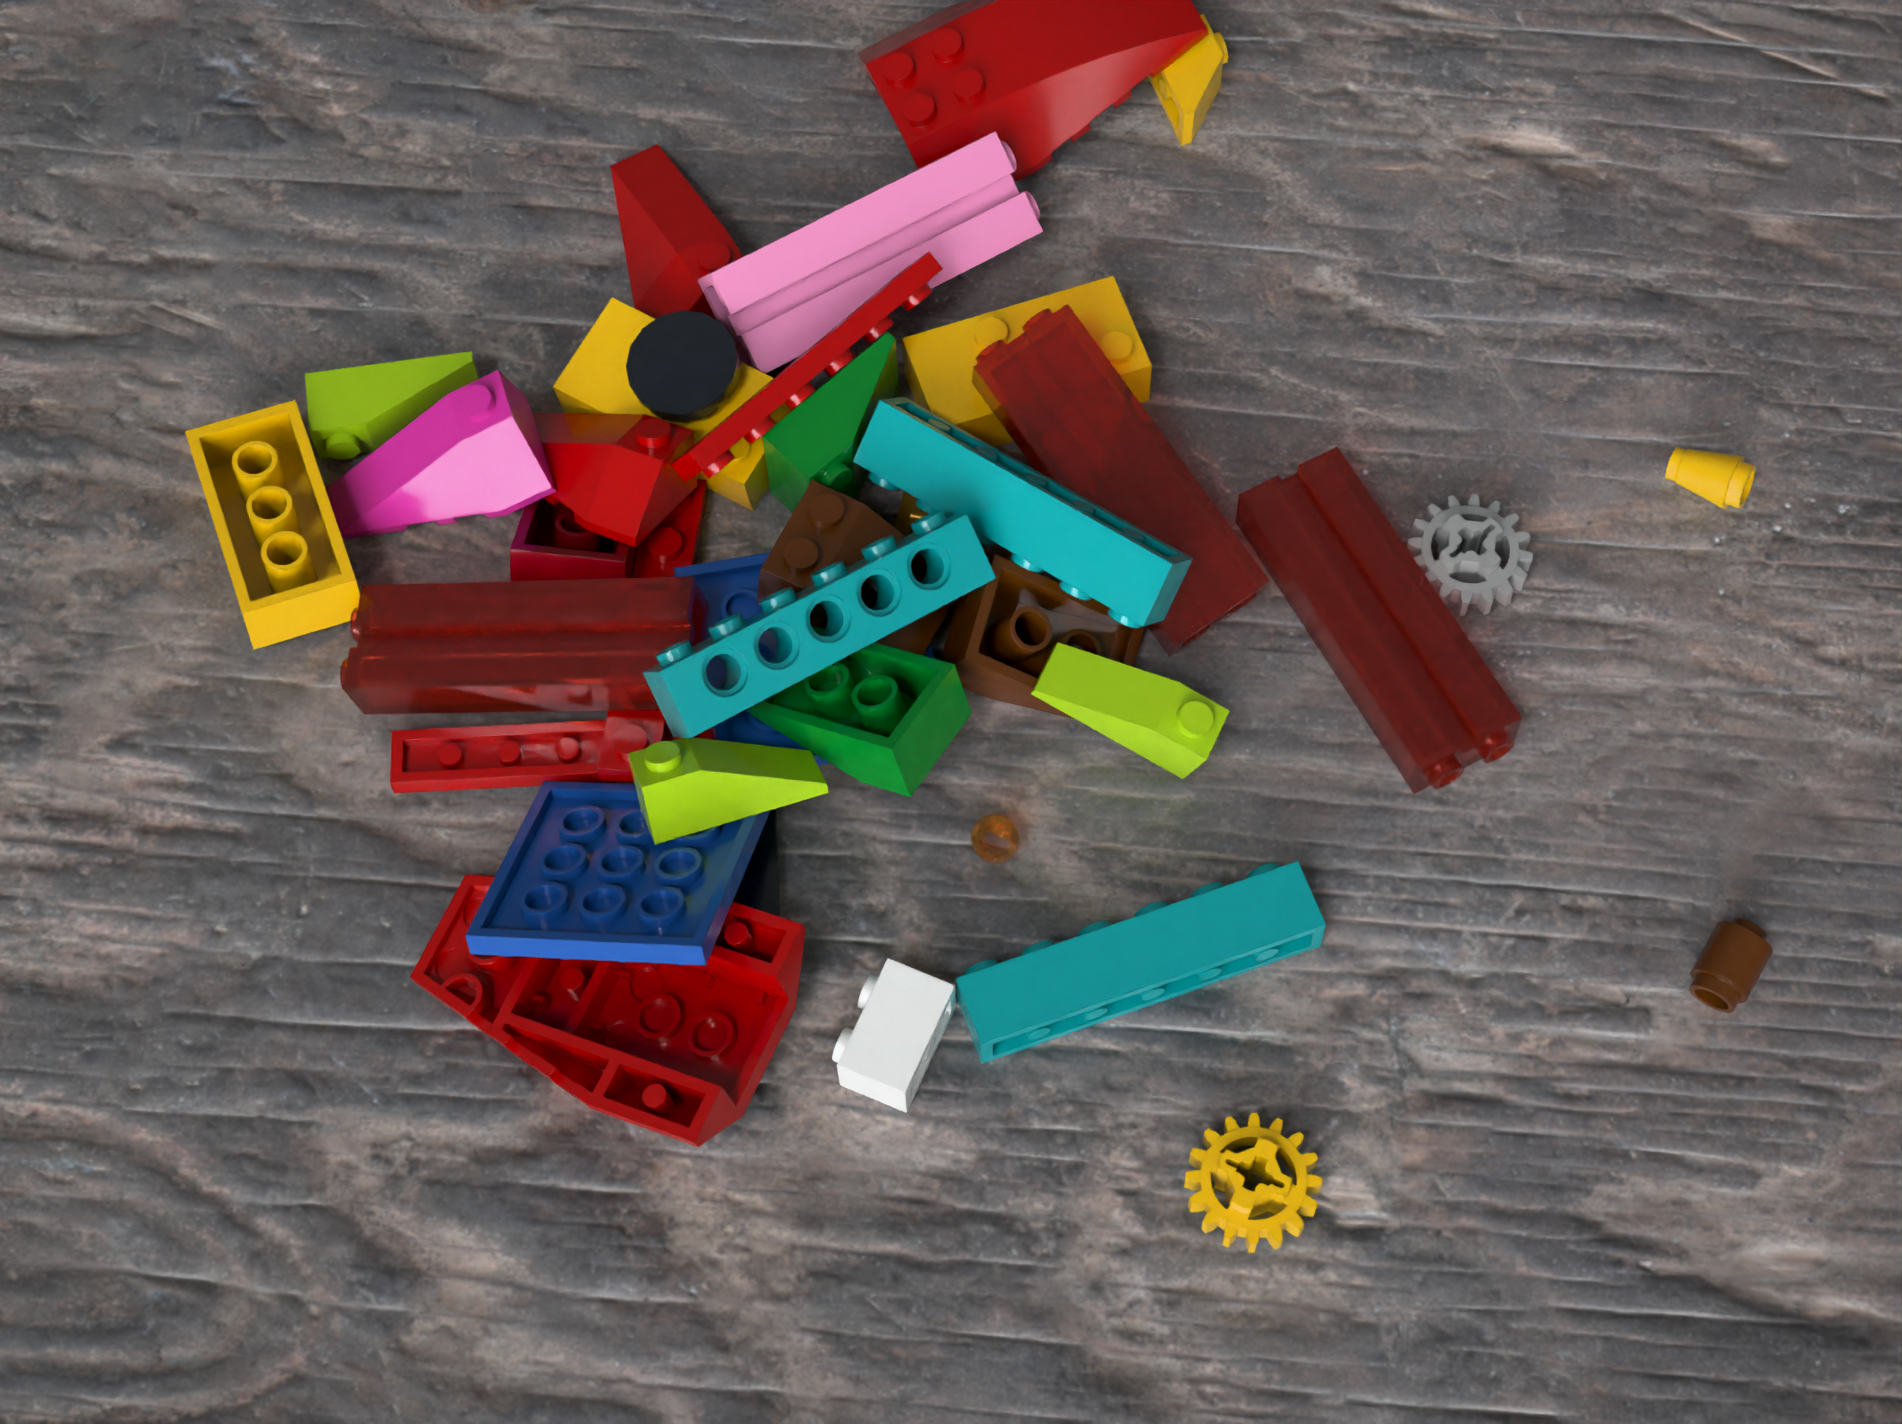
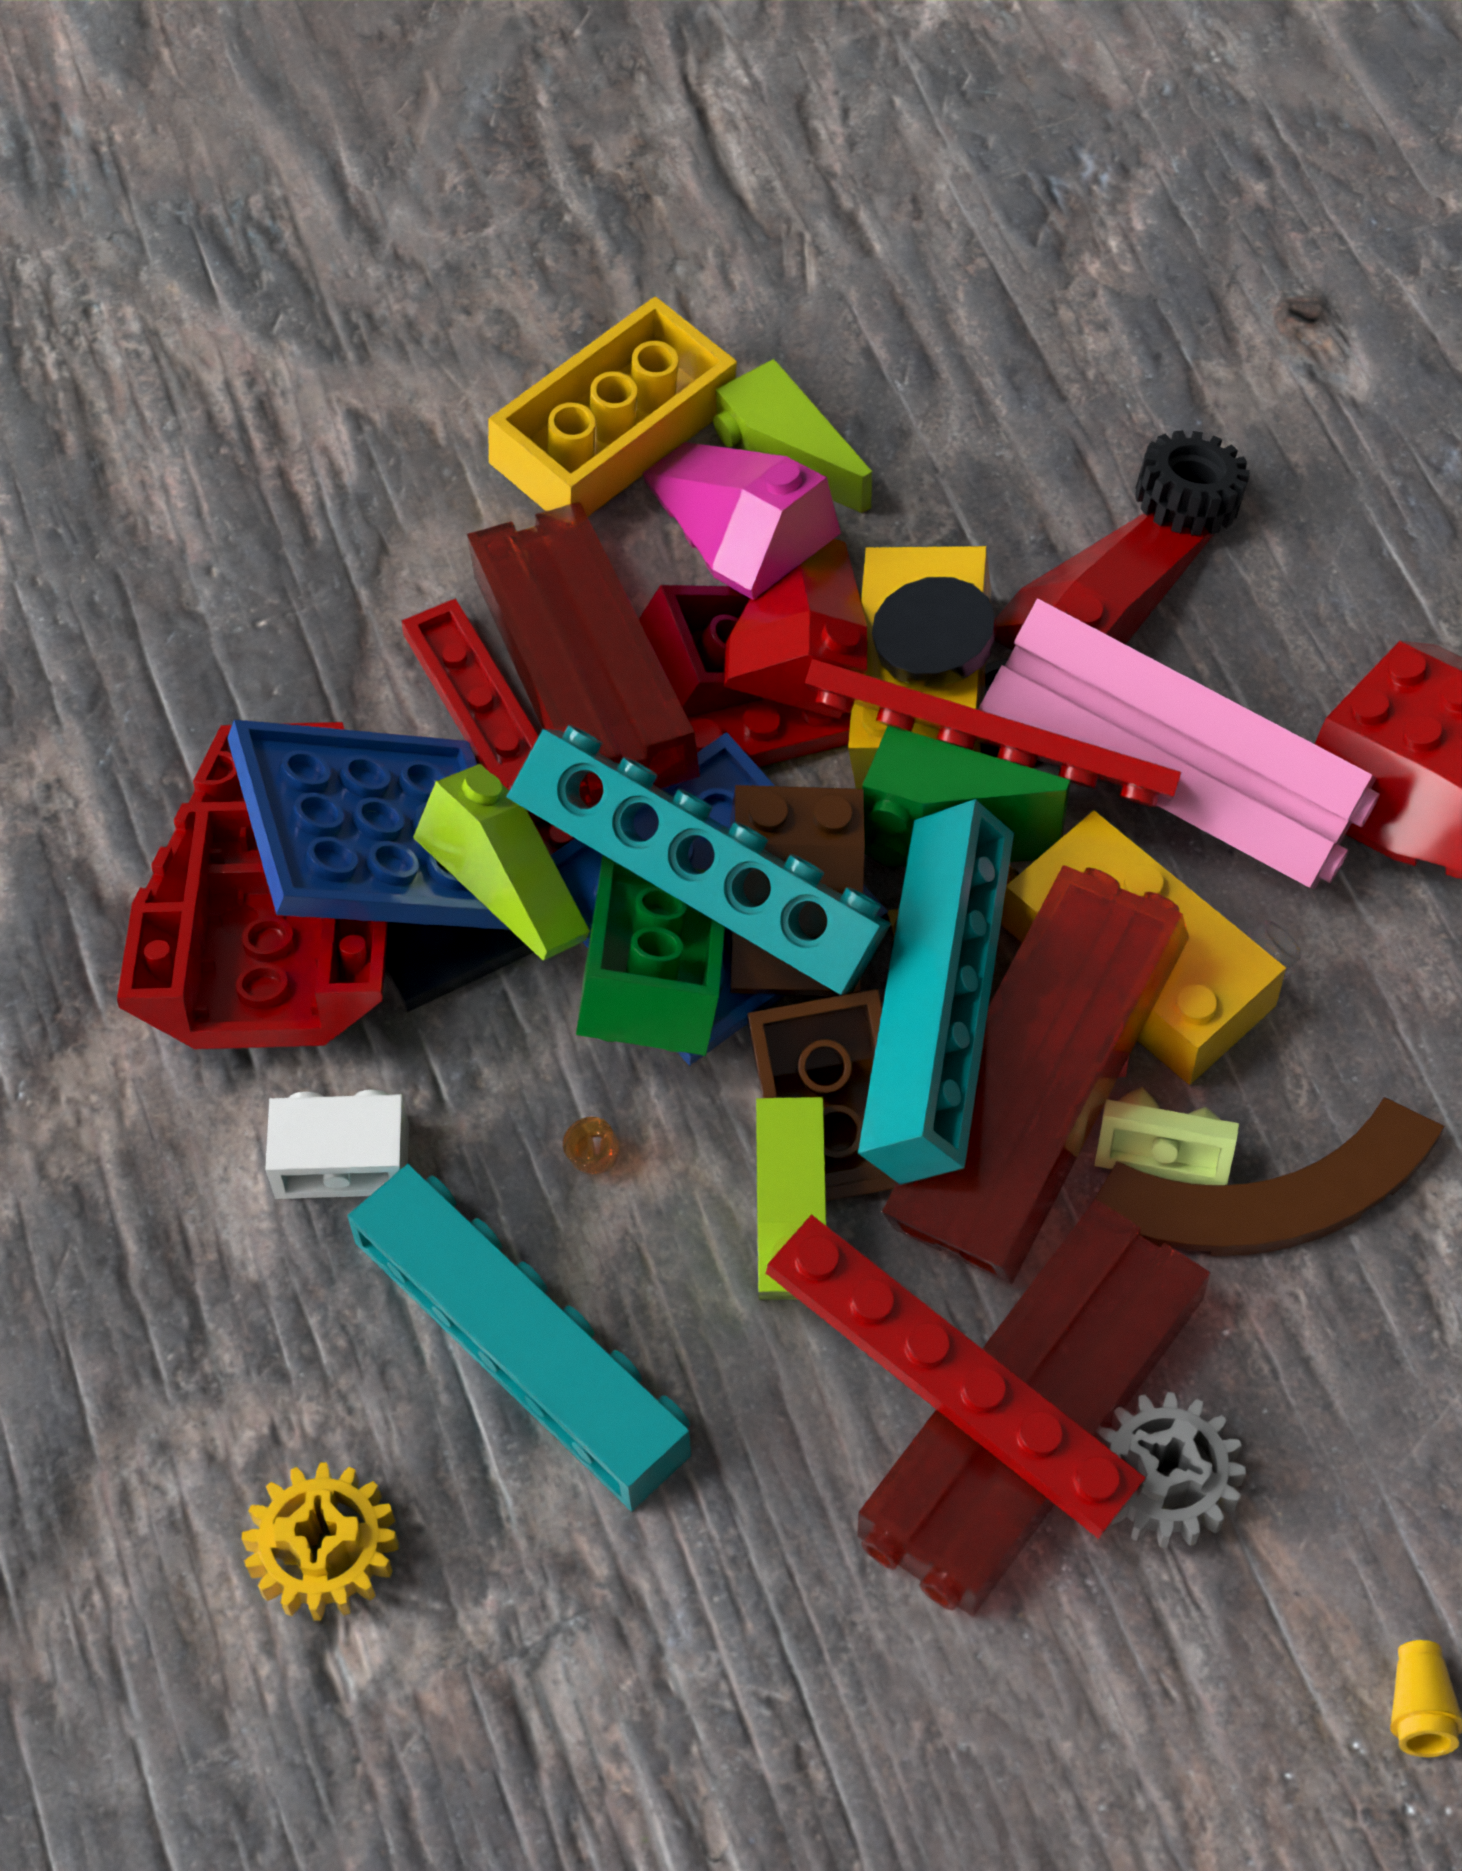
camera: 65 degrees right, 5 degrees down
(619, 156) = (1192, 482): none -> black tyre
(1208, 423) = (1166, 1142): none -> yellowish green tile
(1289, 388) = (1282, 1209): none -> reddish brown tile
(1346, 650) = (955, 1376): none -> red plate

